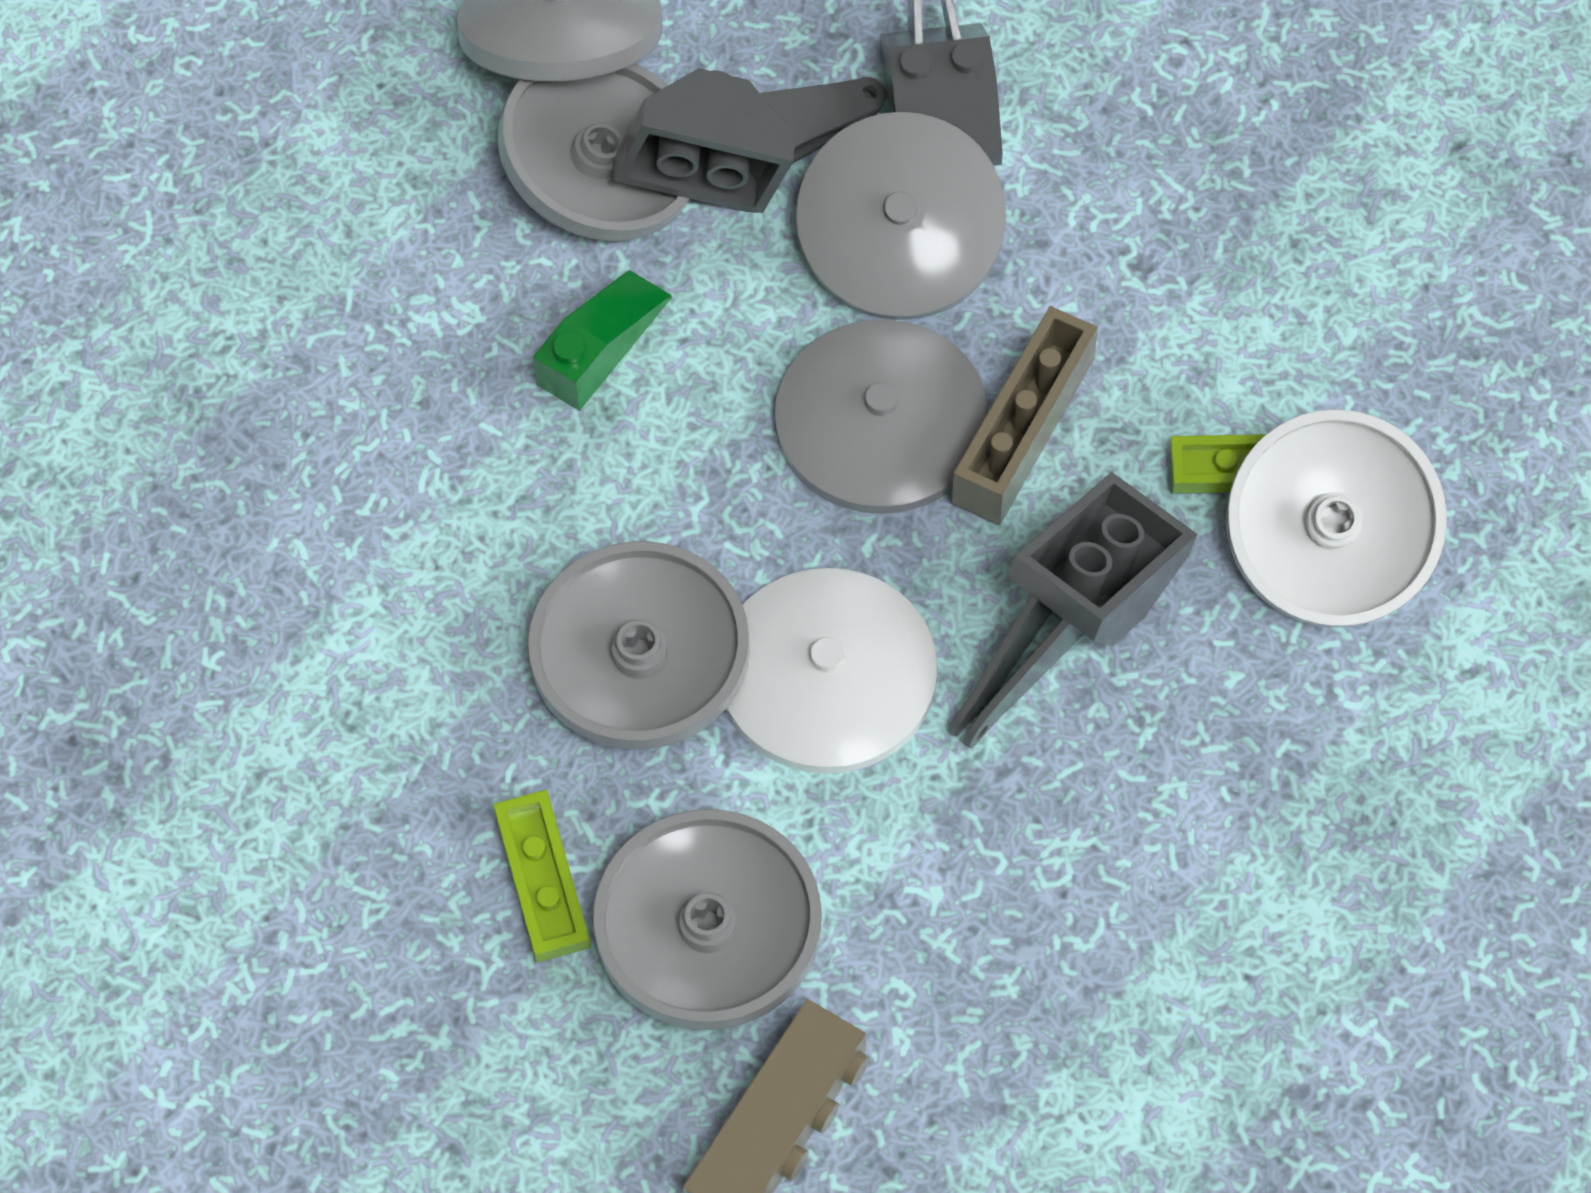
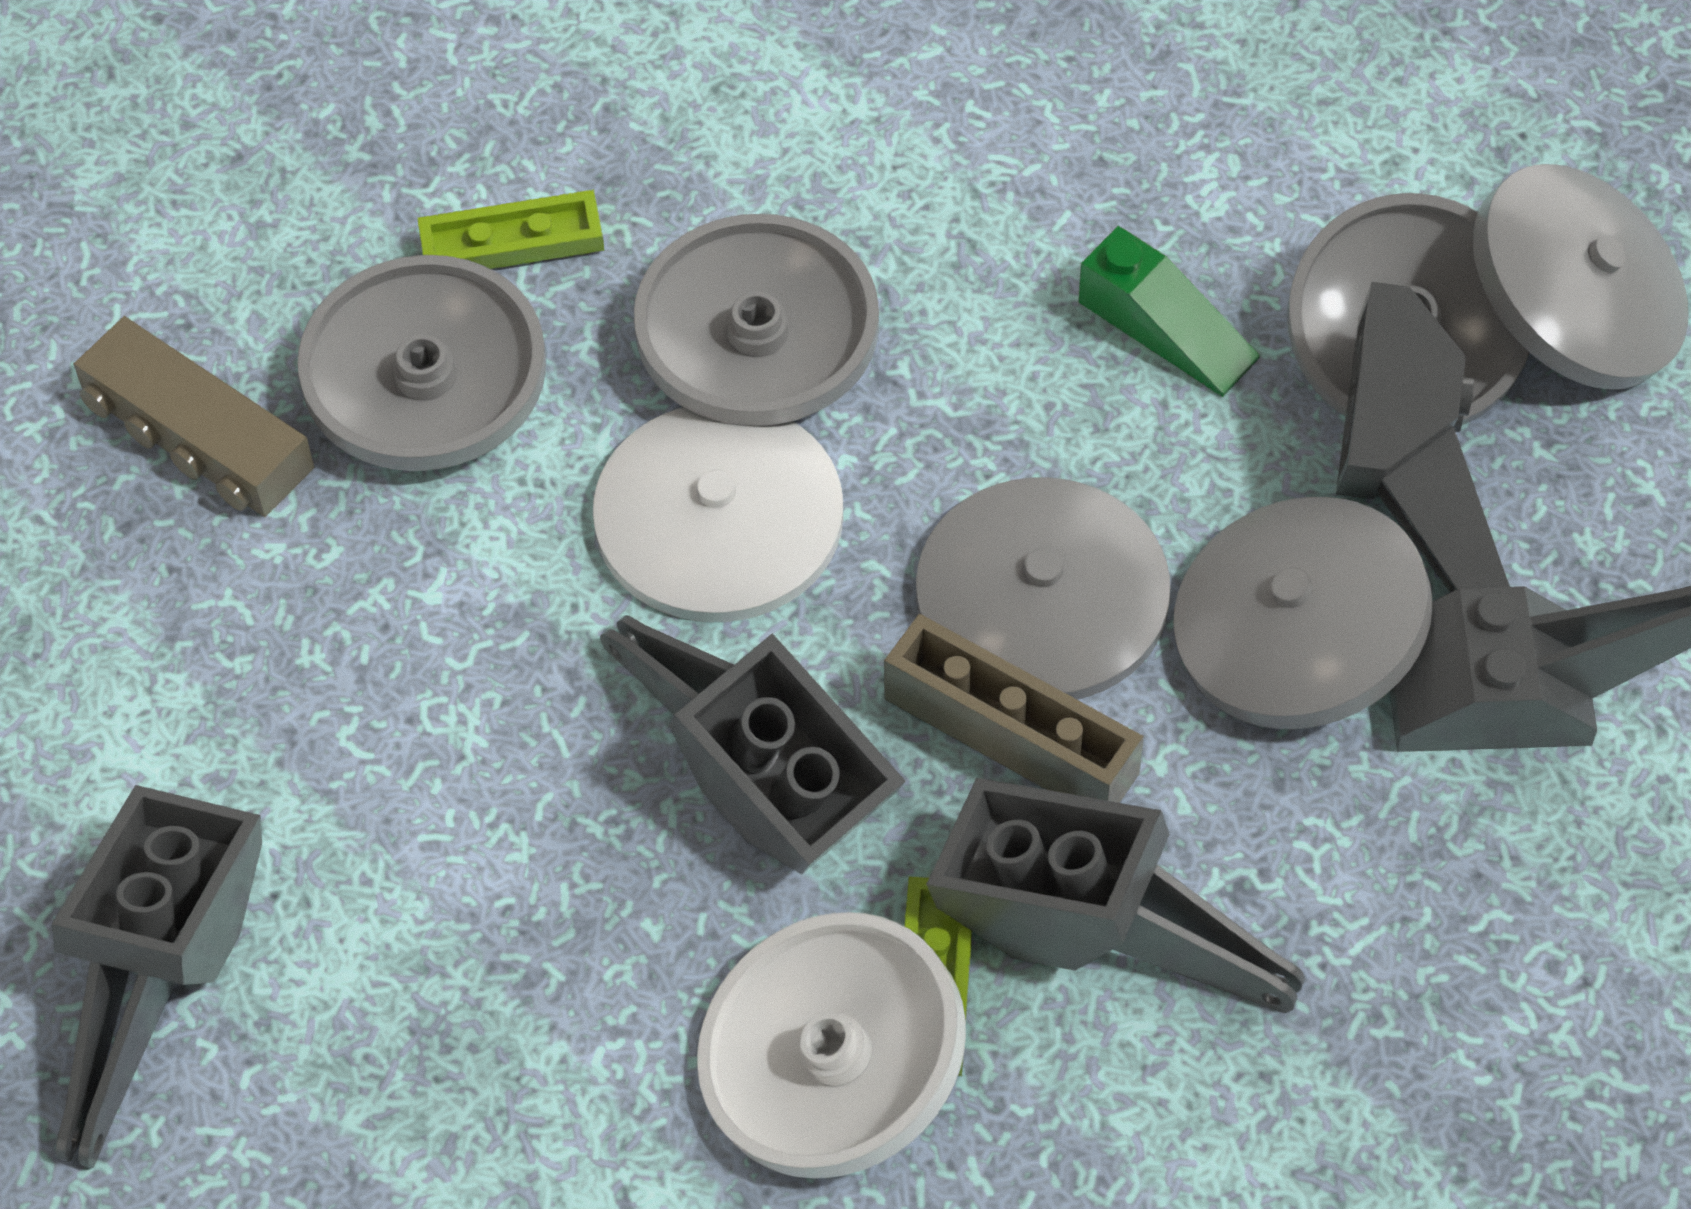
camera: 95 degrees right, 5 degrees down
(1180, 350) = (1080, 877): none -> dark grey slope
(1318, 1035) = (156, 902): none -> dark grey slope

